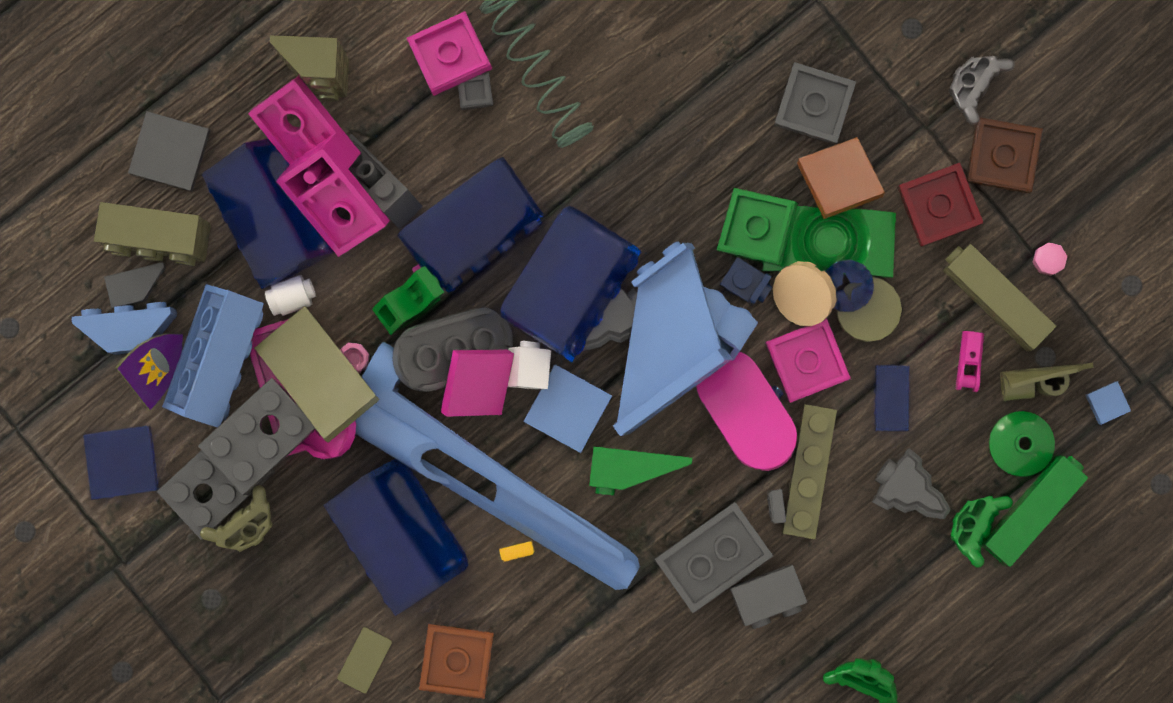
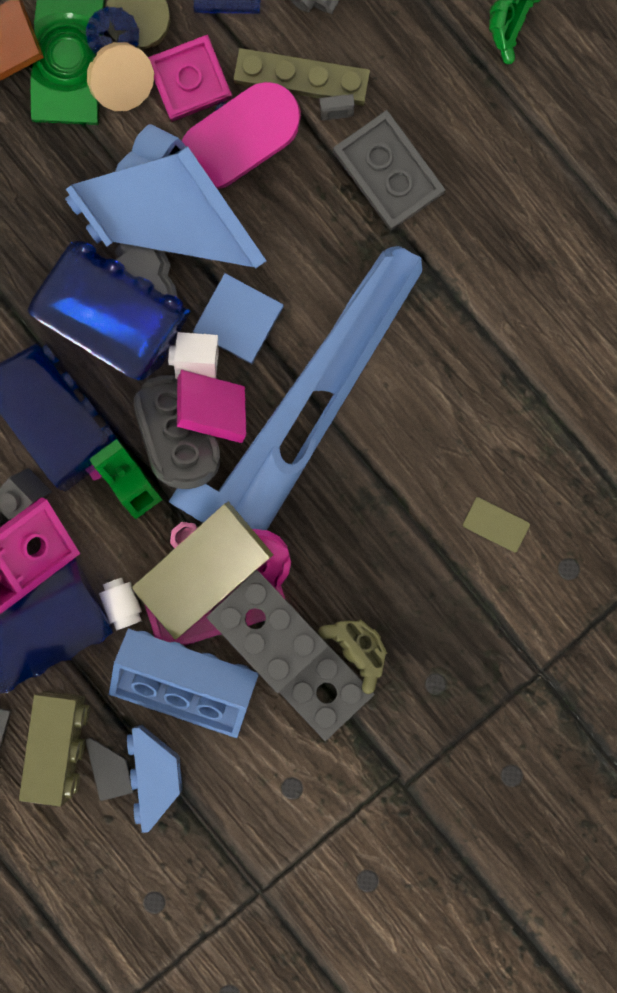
camera: 90 degrees left, 0 degrees up
(120, 462) = (295, 780): clear blue tile -> none
(152, 366) = (194, 747): dark purple shield -> none
(397, 535) = (370, 489): clear blue windscreen -> none
(456, 661) = (496, 430): dark orange tile -> none
(517, 551) = (384, 367): yellow tile -> none
(625, 468) = (299, 258): green slope -> none
(746, 282) = (109, 137): dark blue bracket -> none
(757, 226) = (51, 126): green tile -> none
(768, 596) = (427, 114): dark grey brick -> none

